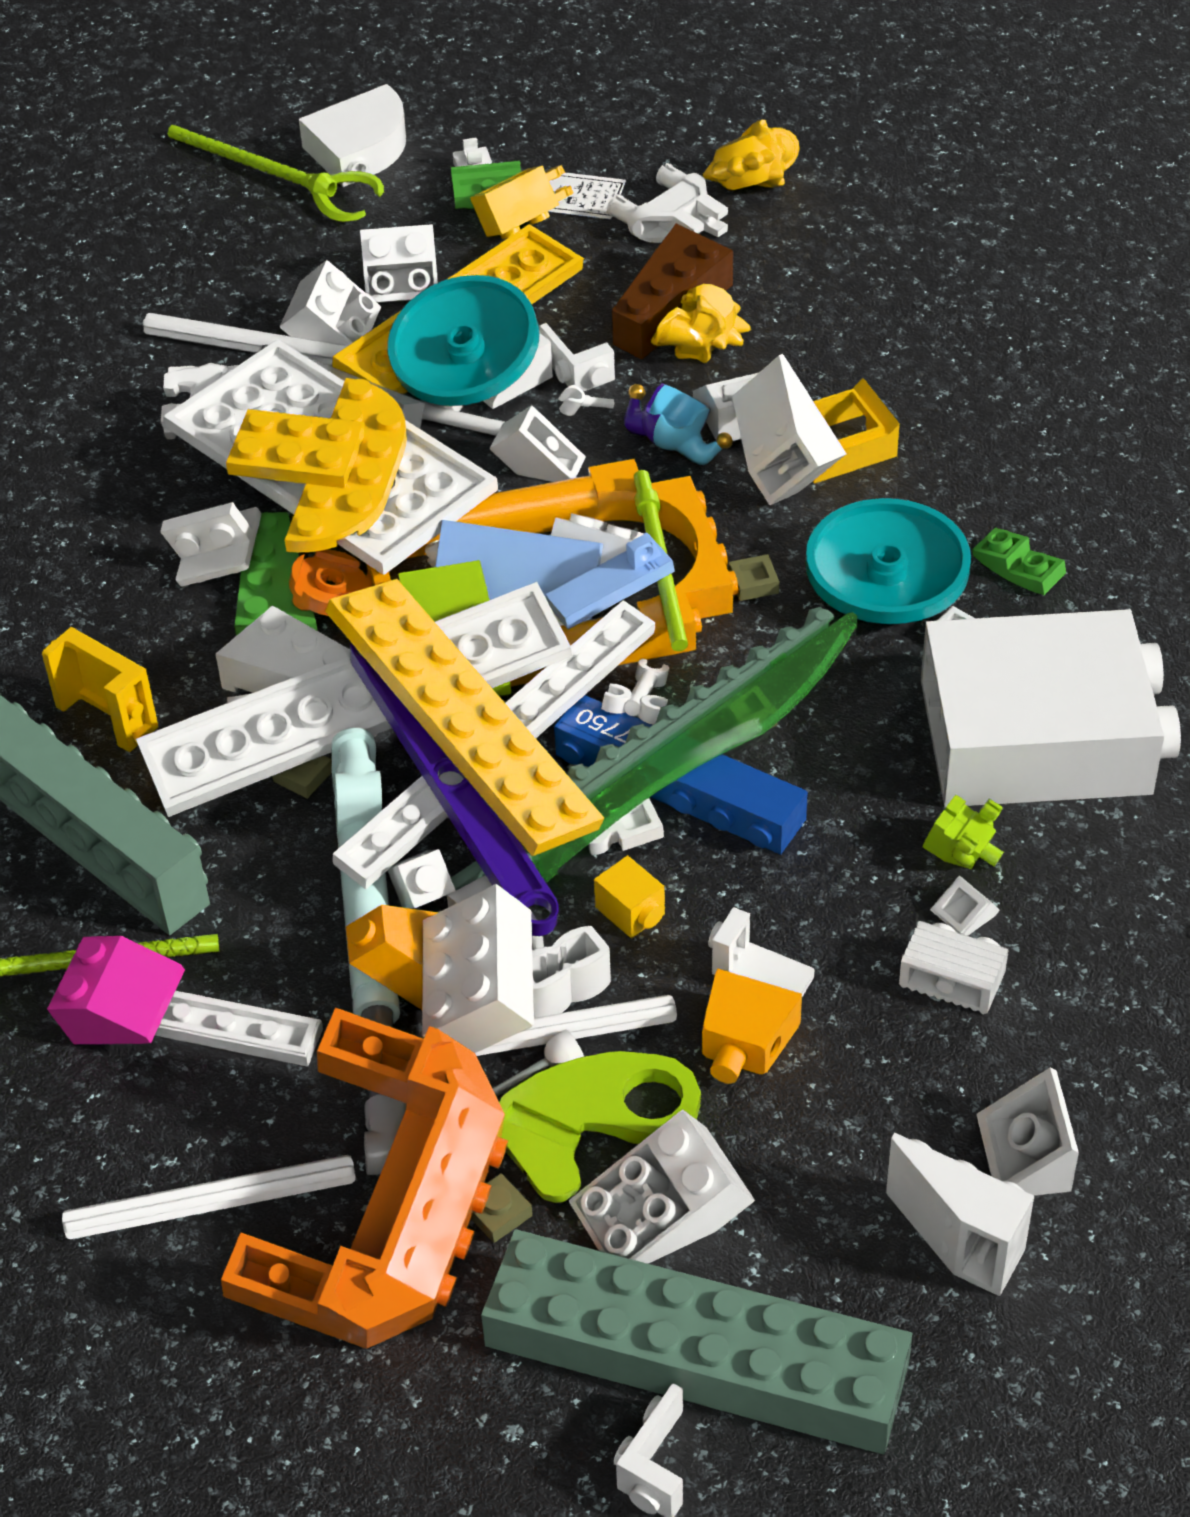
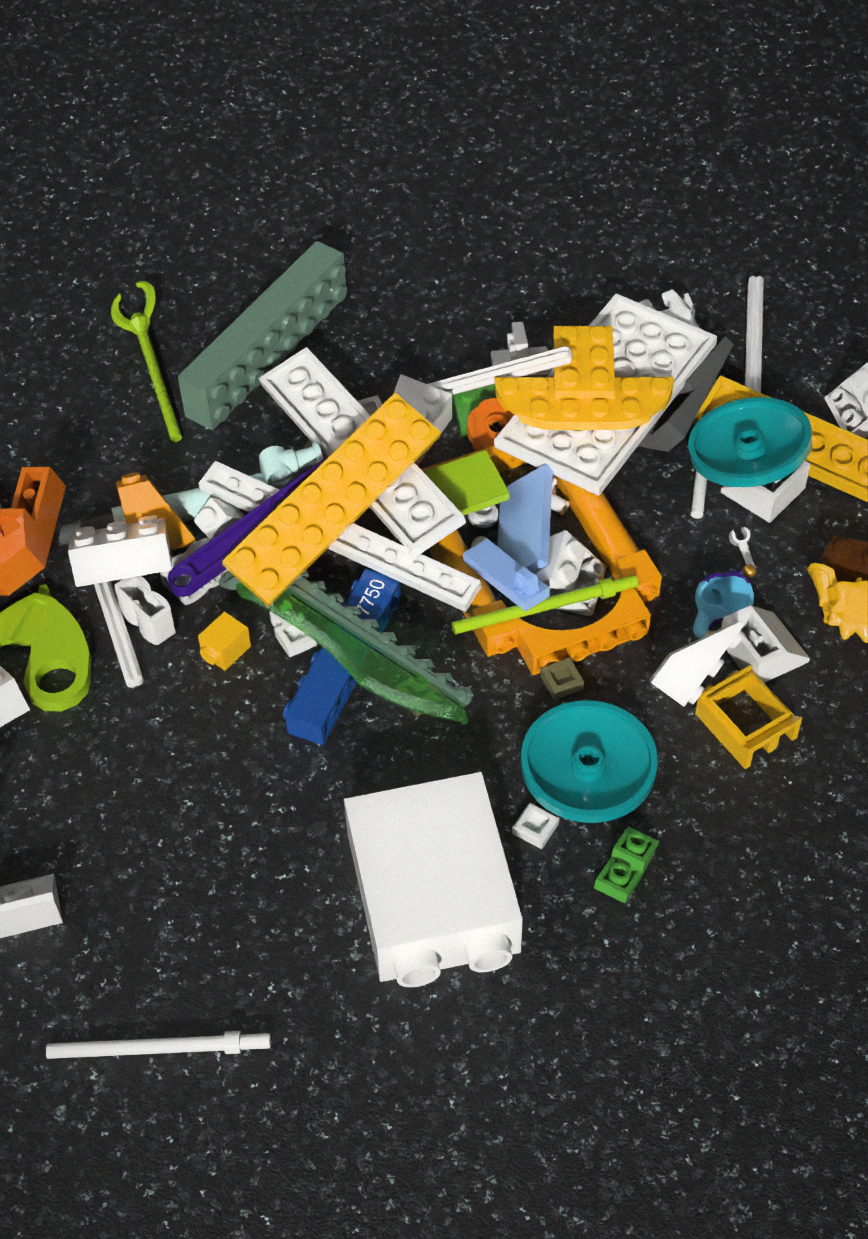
camera: 80 degrees right, 5 degrees up
(114, 684) = (361, 340): yellow panel -> none
(114, 992) = (118, 390): dark pink slope -> none
(240, 1028) = (111, 456): white tile -> none
(271, 536) = (515, 368): none -> white axle
(329, 308) = (794, 375): white slope -> none
(536, 448) = (670, 524): white slope -> none
(558, 1050) = (91, 623): hinge -> none
(582, 369) = (774, 532): white bracket -> none
(639, 702) = (395, 614): white bar -> none
(737, 955) = (173, 721): white bracket -> none
(747, 1024) = (115, 721): light orange torso -> none
(953, 966) = (176, 843): white brick -> none
(964, 907) = (243, 853): white slope -> none
(965, 835) = (302, 841): lime piece -> none

